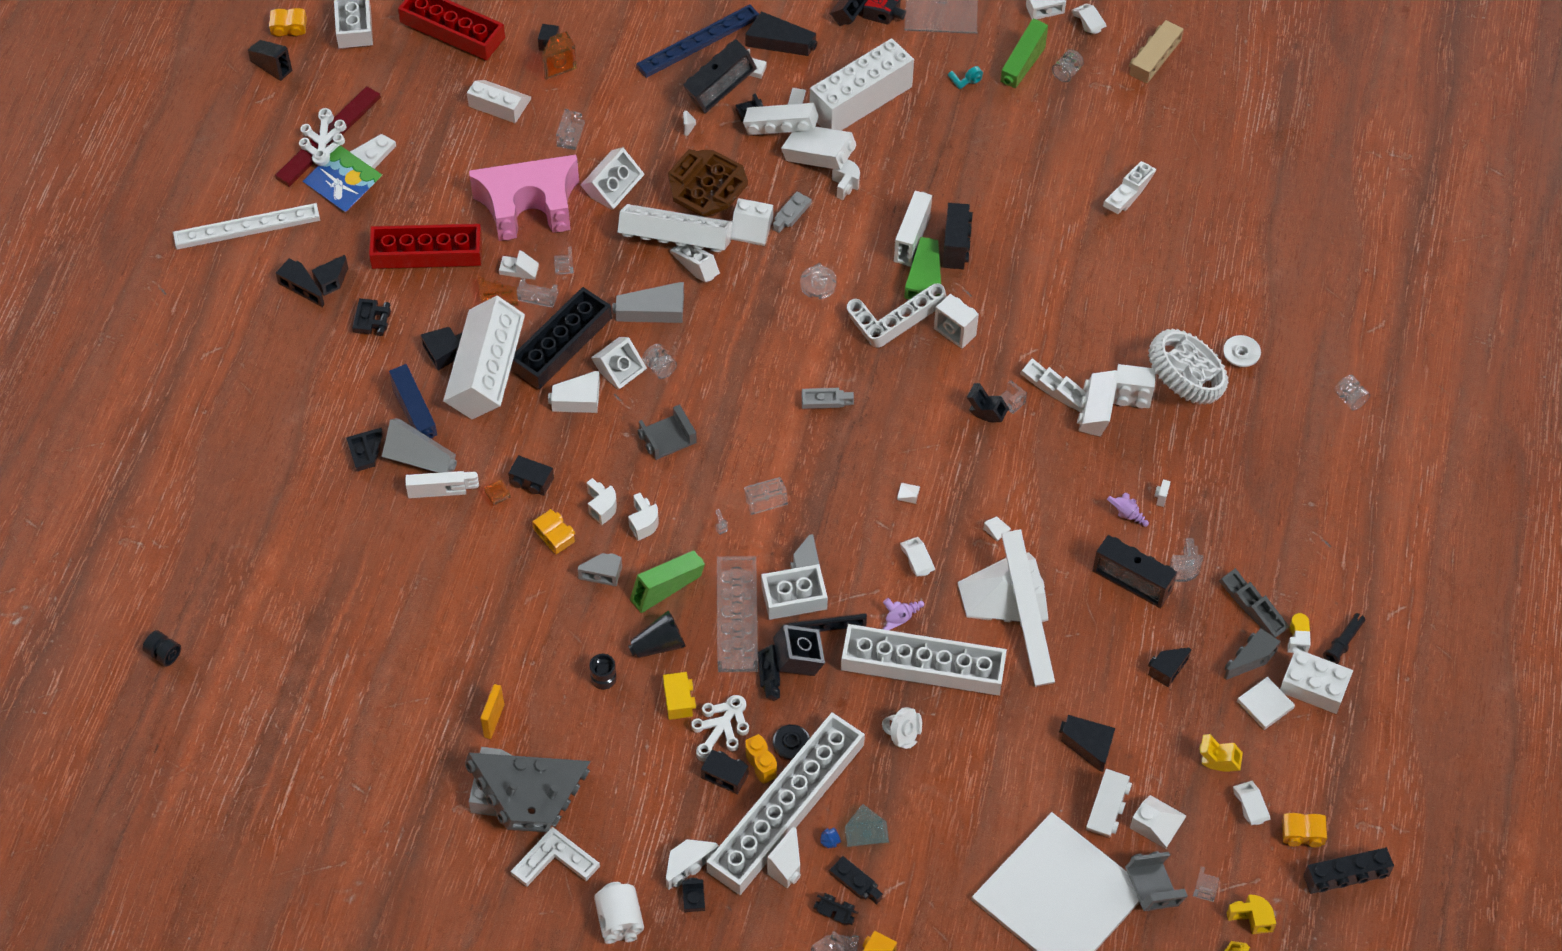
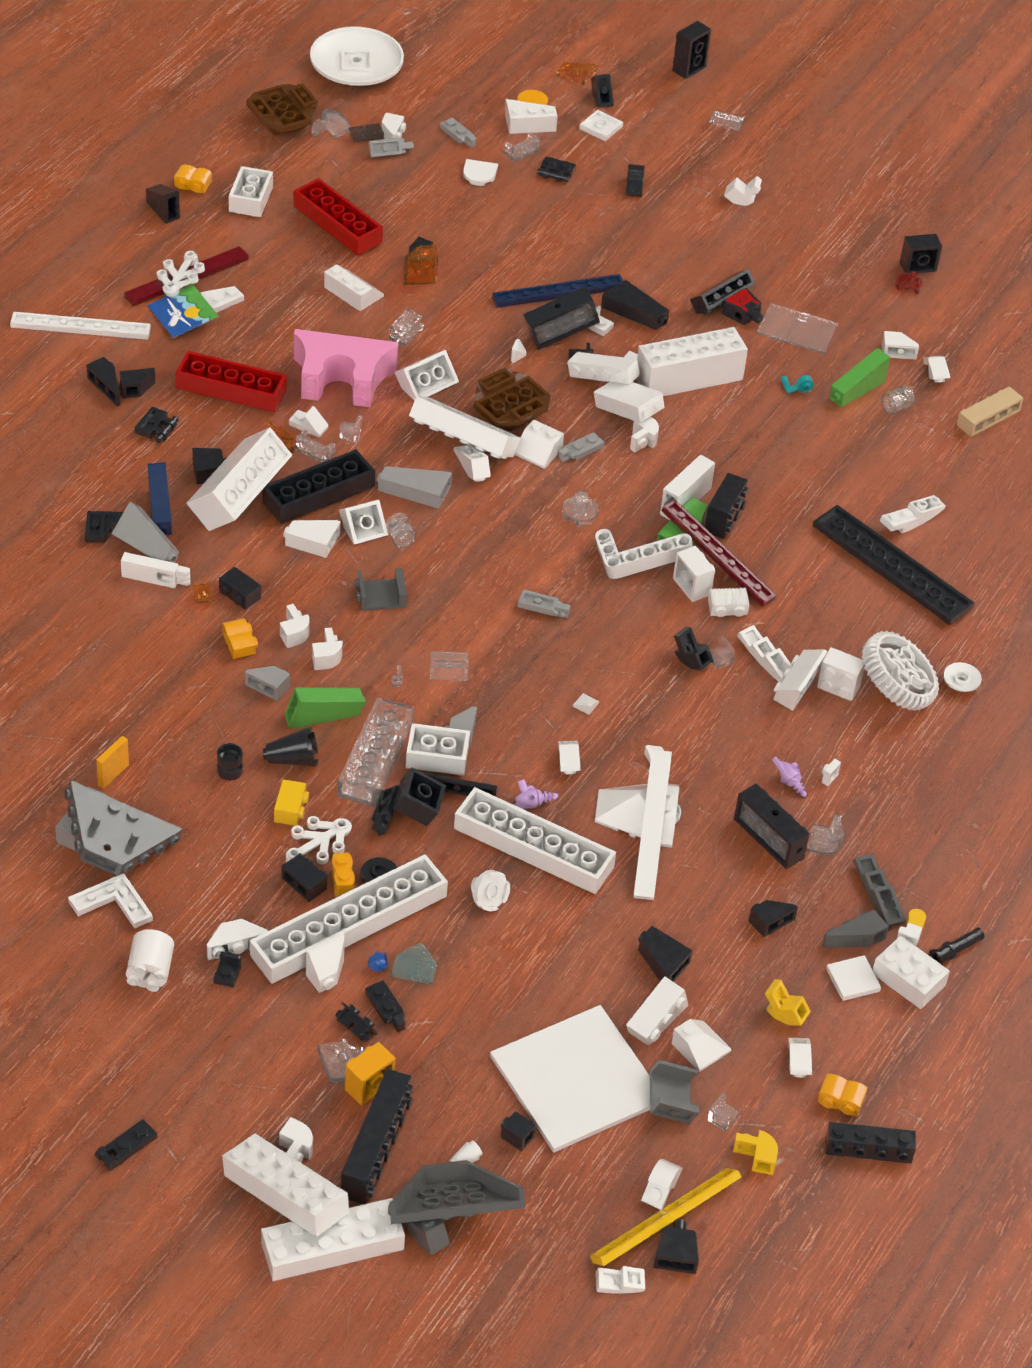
camera: 15 degrees right, 10 degrees down
(969, 290) = (718, 553): none -> dark red tile
(997, 340) = (728, 602): none -> white brick
(1132, 248) = (893, 564): none -> black plate

